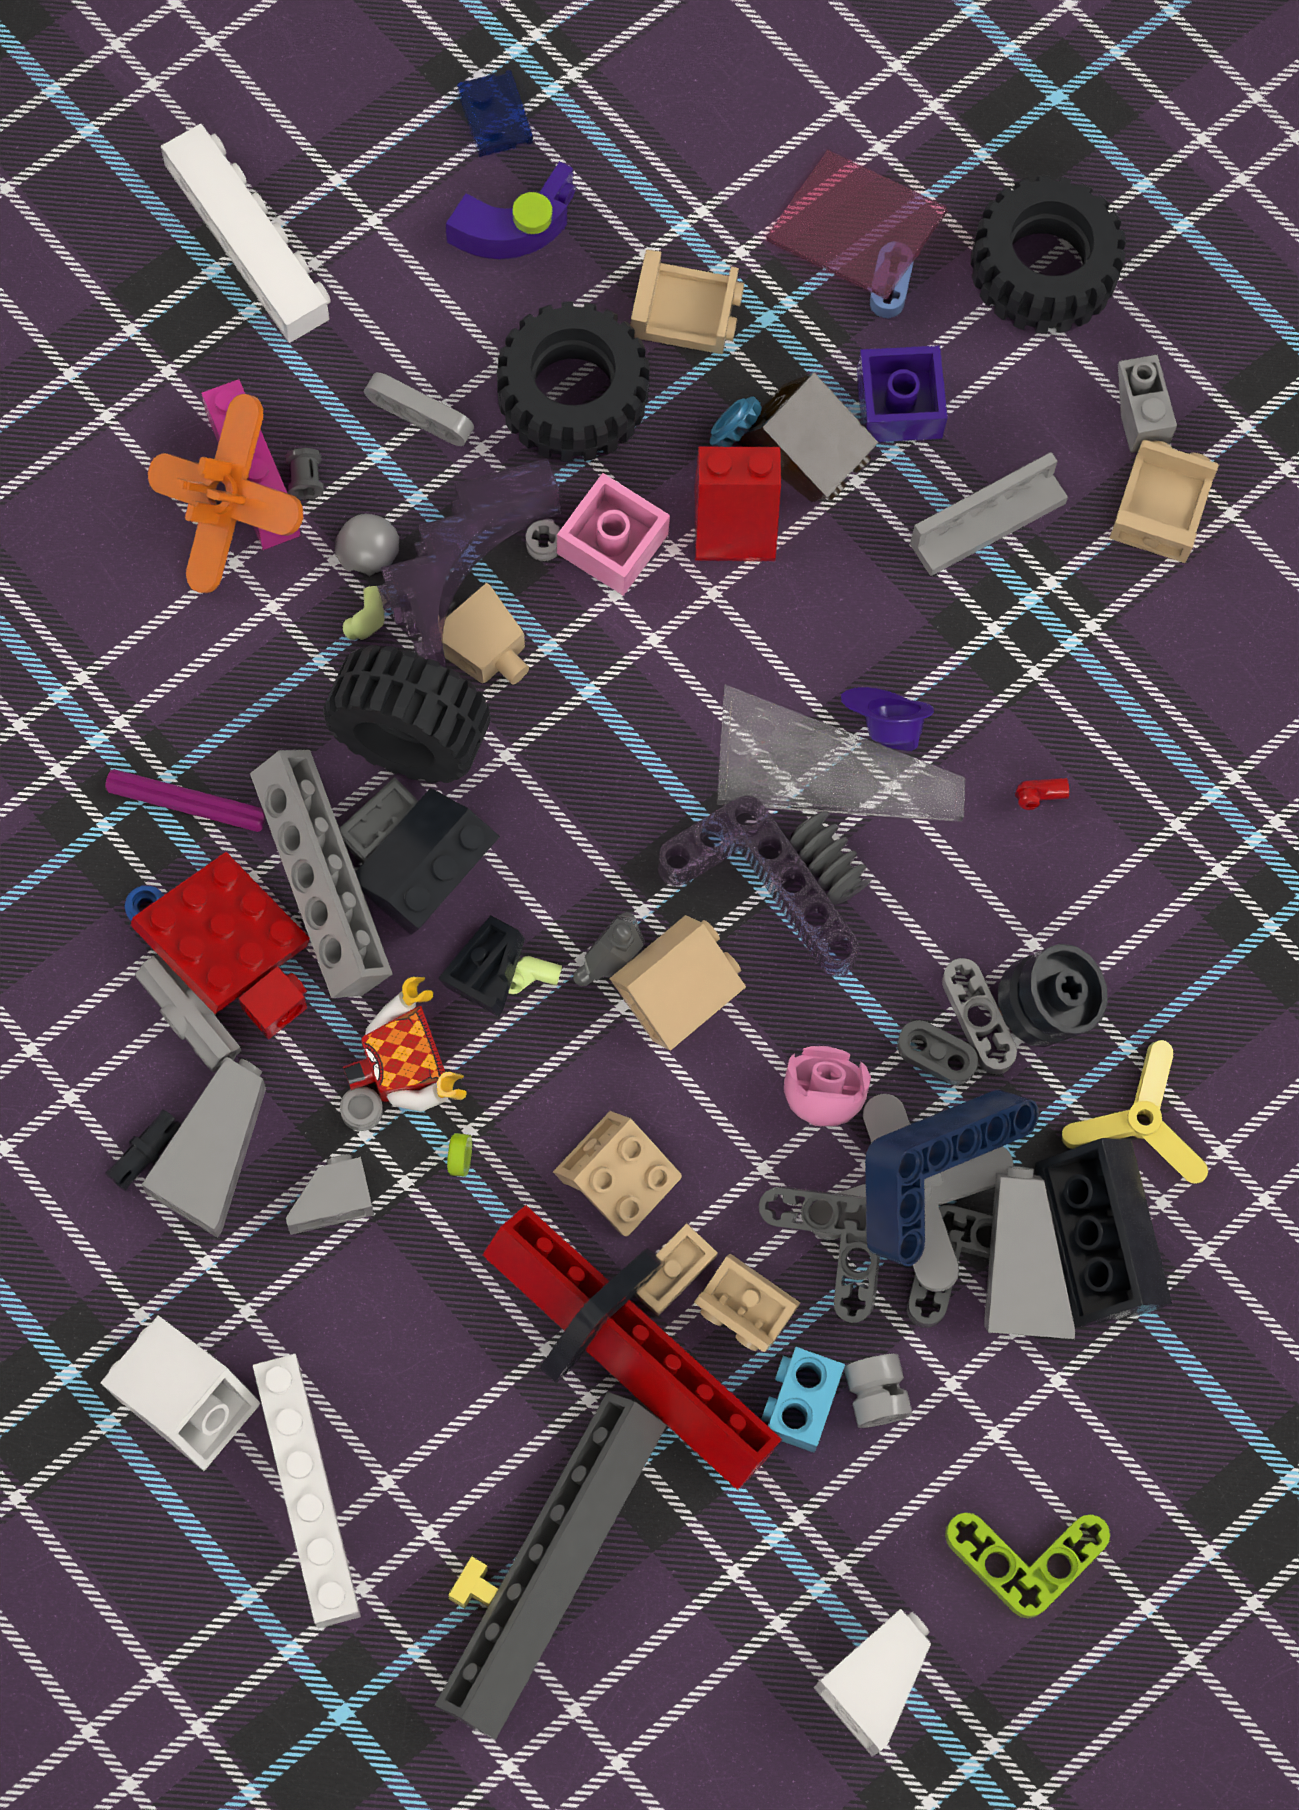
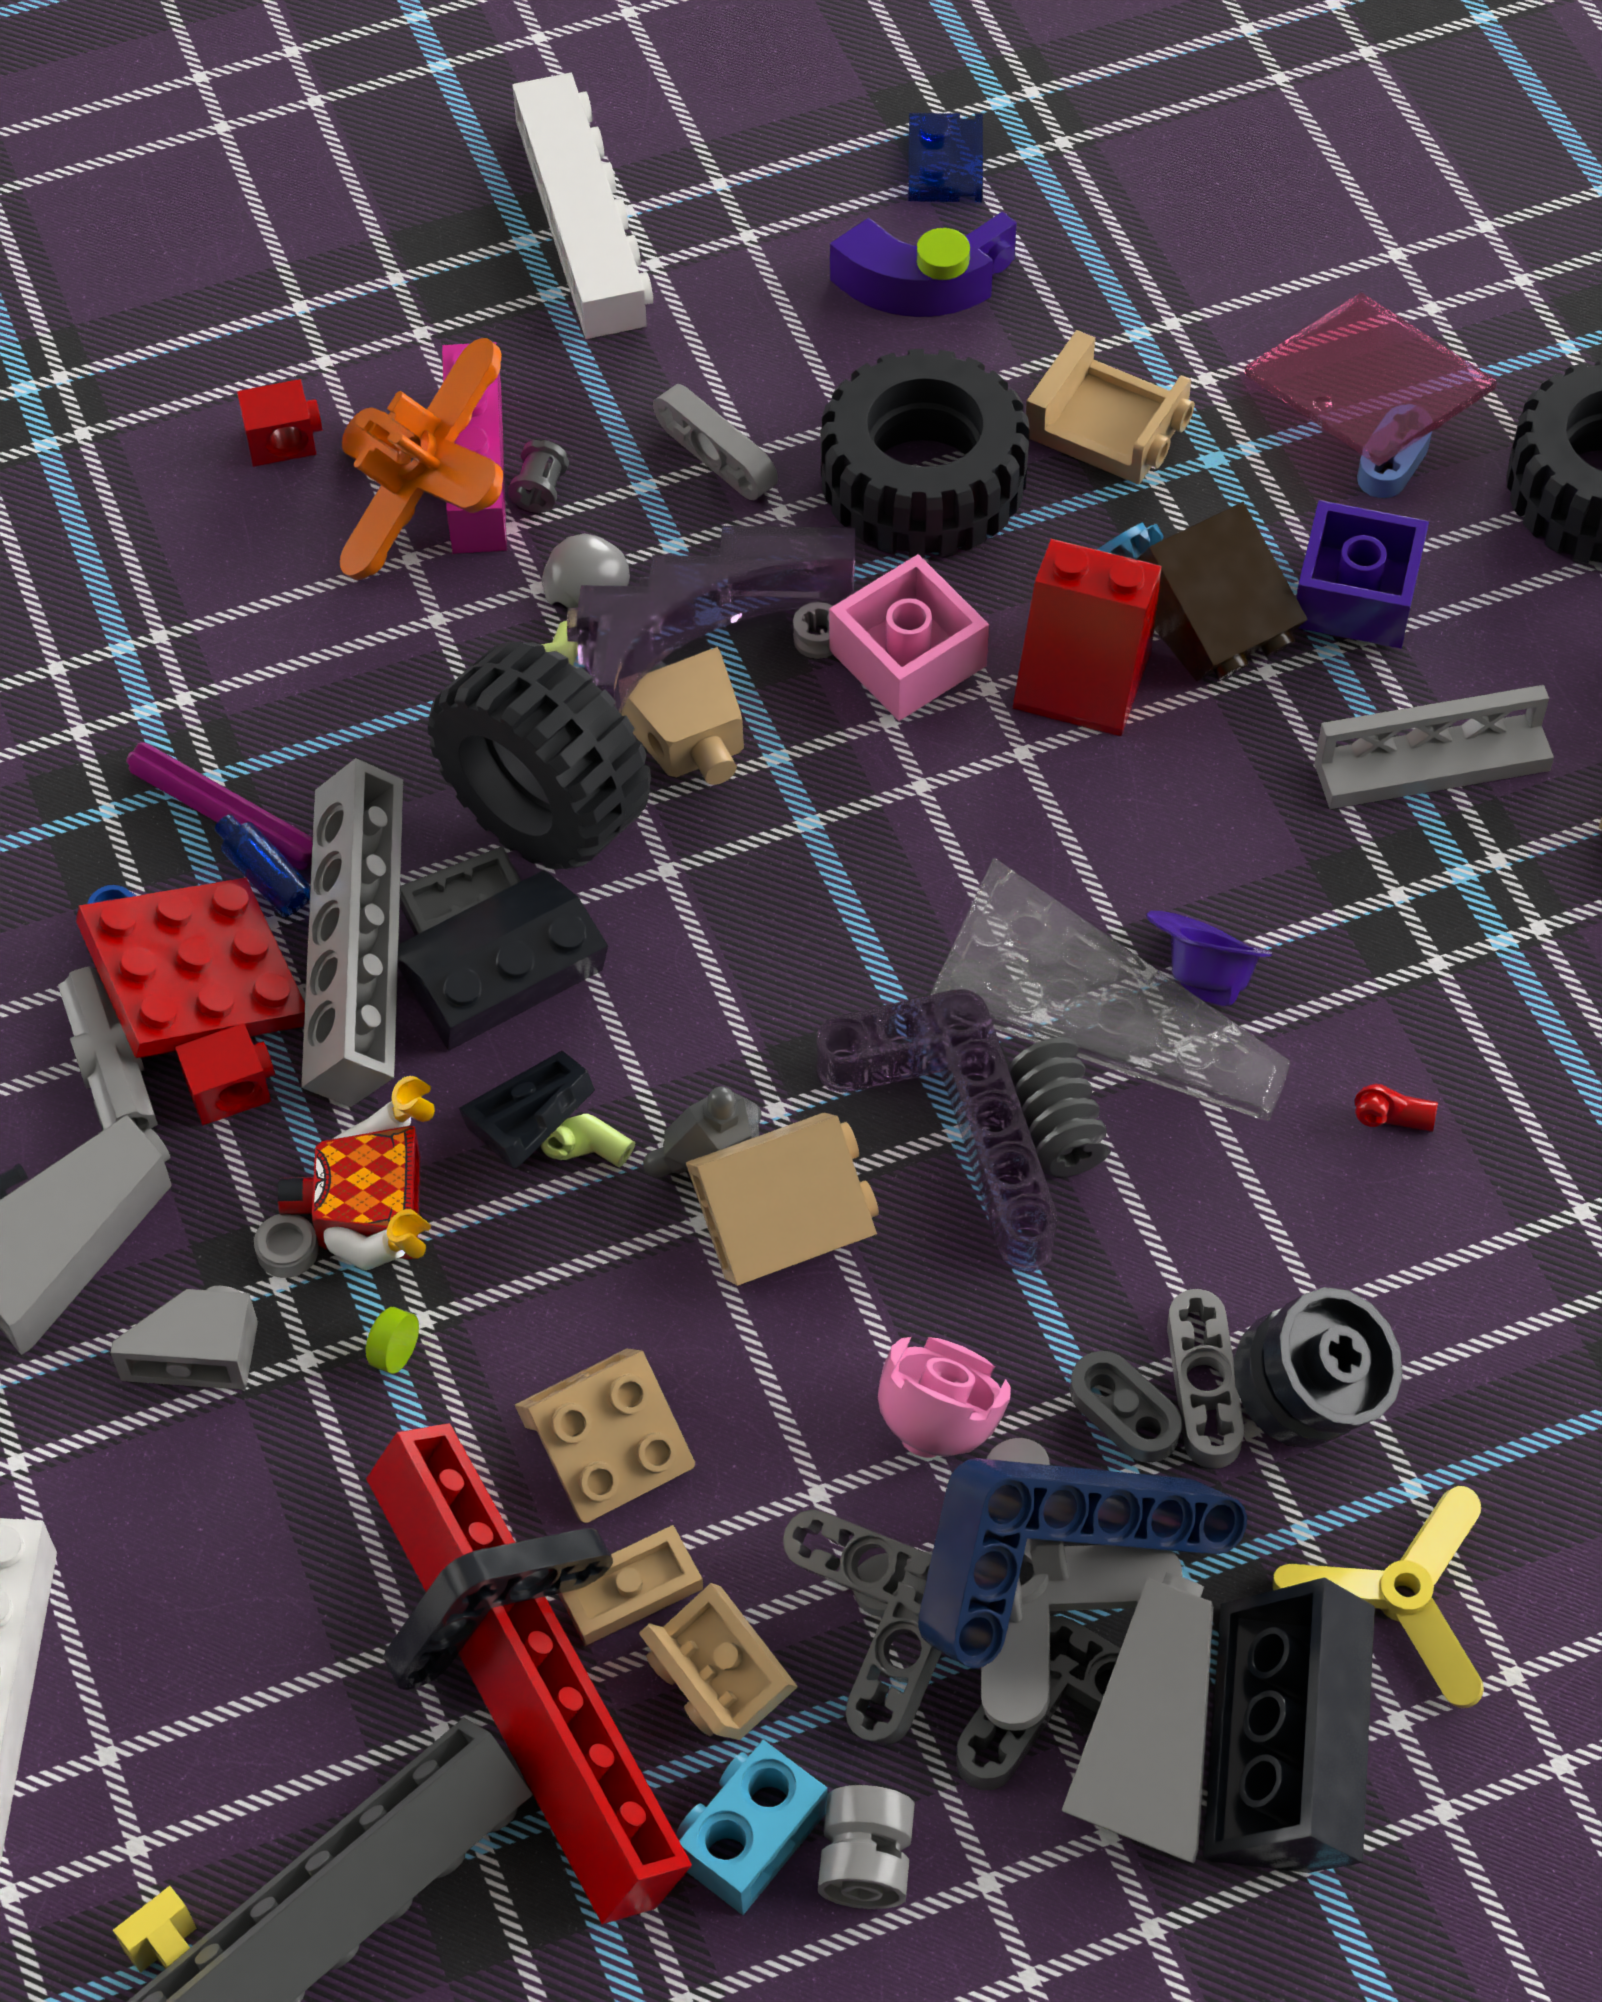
camera: 25 degrees right, 15 degrees down
(100, 483) = (279, 422): none -> red brick
(235, 839) = (263, 865): none -> clear blue cylinder

